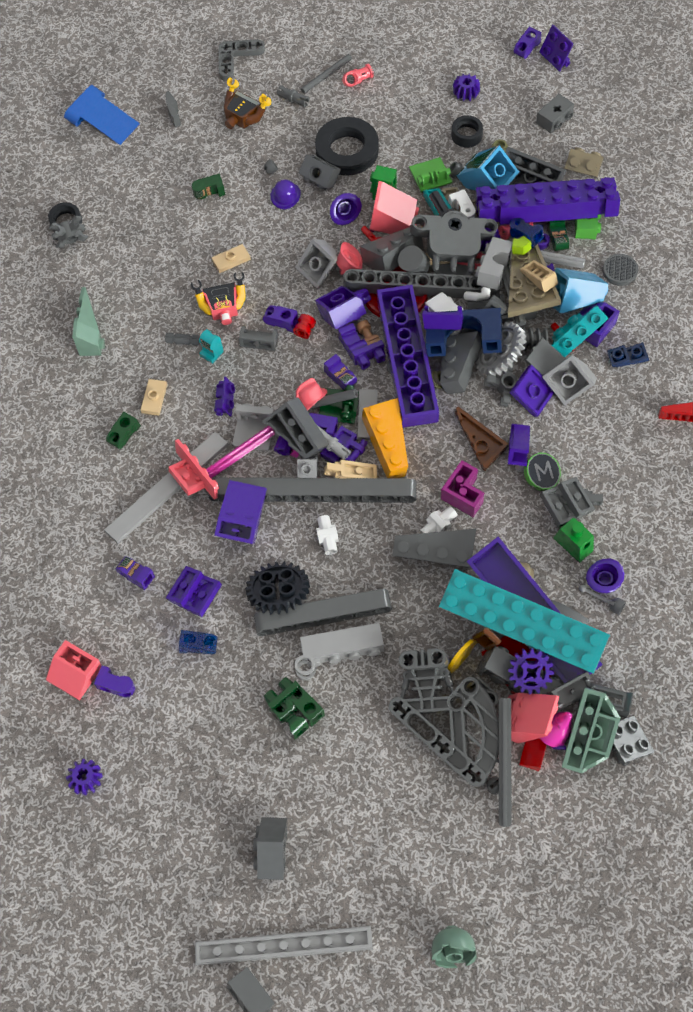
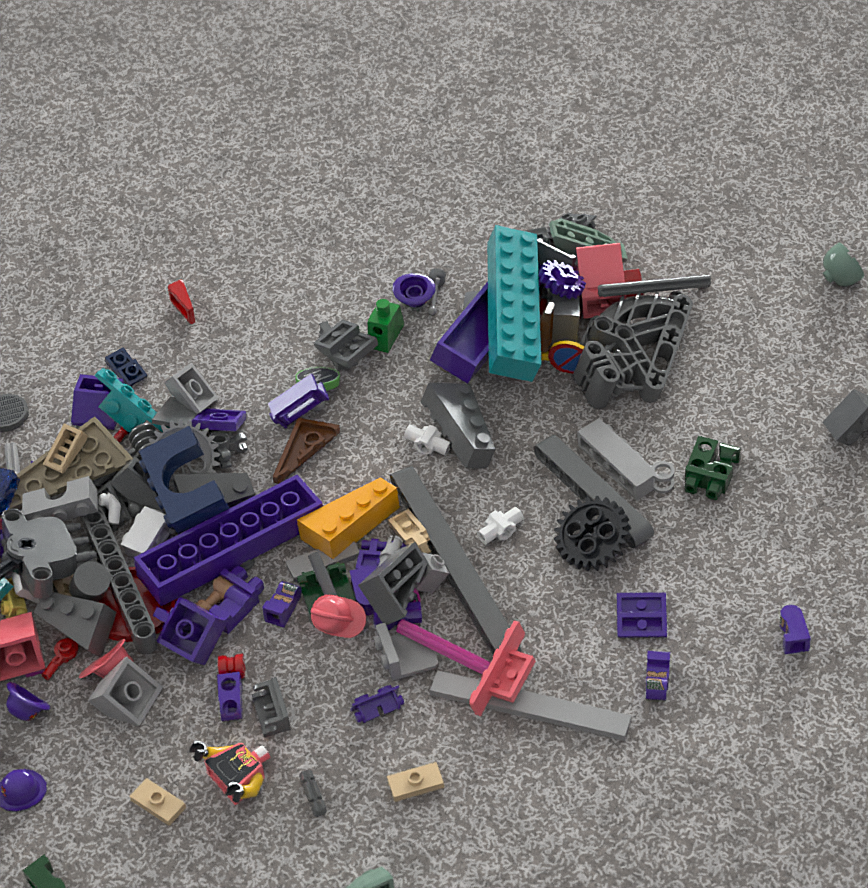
camera: 115 degrees left, 15 degrees down
(73, 670) = (808, 669): coral slope -> none
(122, 430) = (484, 784): dark green leg -> none
(197, 642) = (700, 580): clear blue leg -> none
(211, 346) = (312, 744): teal leg -> none
(241, 512) = (529, 598): dark purple slope -> none
(442, 319) = (180, 492): dark purple hinge -> none
(460, 491) = (377, 433): magenta brick -> none
(521, 246) = (22, 484): lime piece -> none
(579, 289) = (54, 412): dark azure slope -> none

